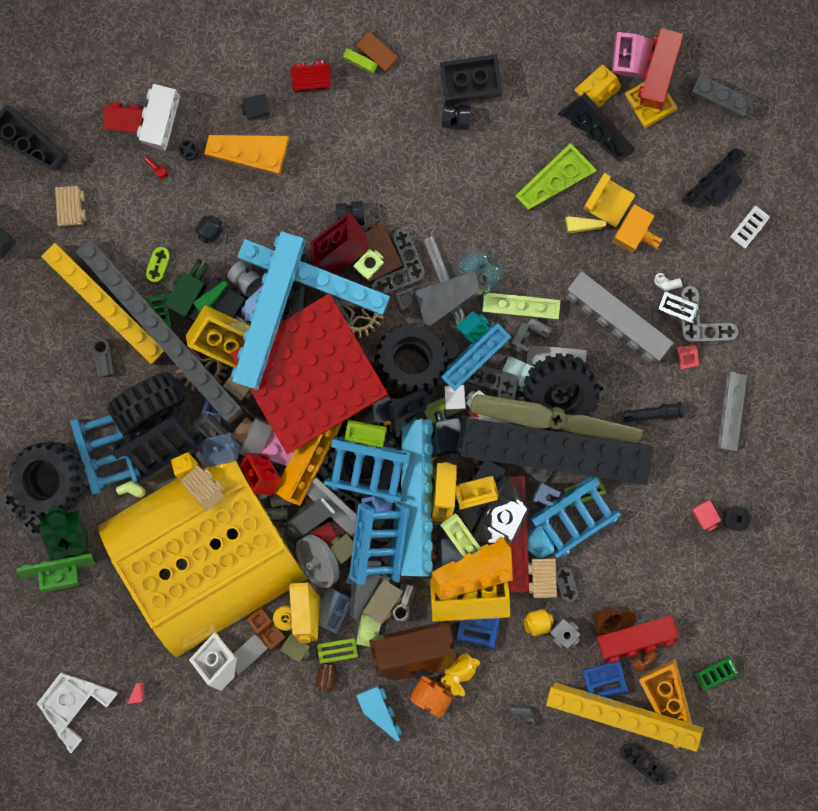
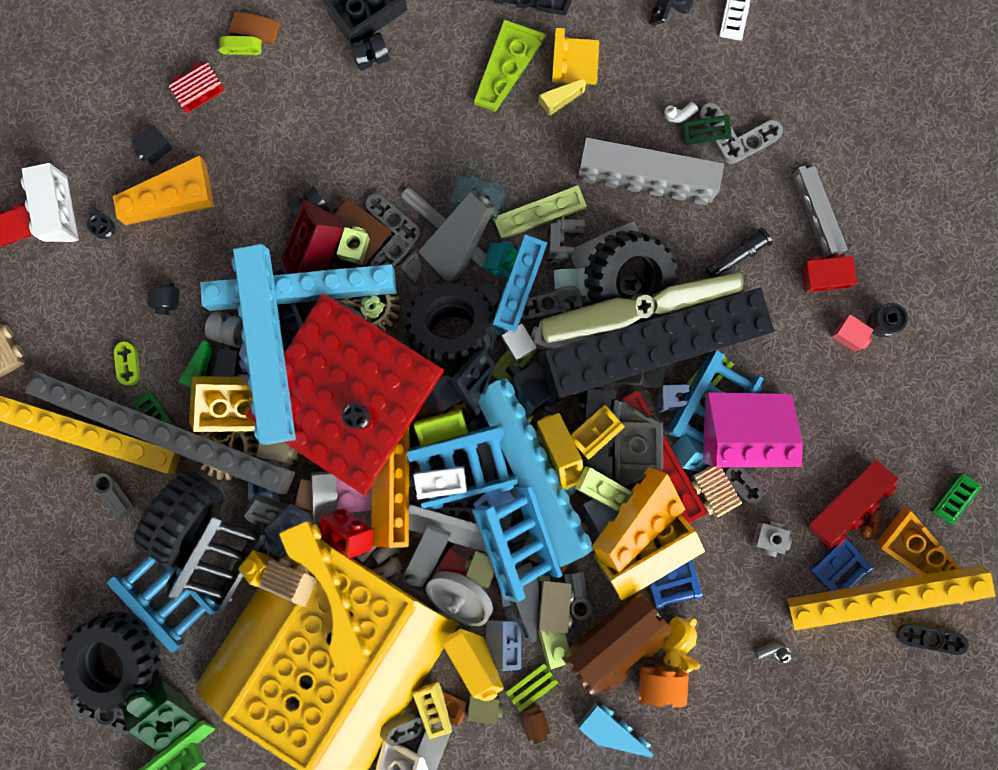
camera: 25 degrees left, 5 degrees down
(132, 488) = (214, 622): yellowish green arm -> none
(160, 172) = (82, 264): red hand -> none
(187, 290) = (166, 371): dark green brick -> none
(222, 555) = (346, 645): none -> yellow arch
(230, 632) = (402, 729): none -> dark grey beam
(253, 622) = (425, 712): none -> light yellow slope
(277, 618) = (449, 688): yellow head -> none
(306, 395) = (350, 416): none -> black wheel
(345, 473) = (440, 482): none -> white plate
(359, 311) = (371, 313): none -> yellowish green plate
(538, 622) = (736, 542): yellow head -> none
(591, 548) = (751, 430): none -> dark pink slope
(612, 620) = (814, 499): reddish brown piece -> none
(635, 229) = (619, 72): light orange brick -> none
(687, 356) = (742, 178): coral slope -> none
(712, 462) = (829, 273): none -> red brick

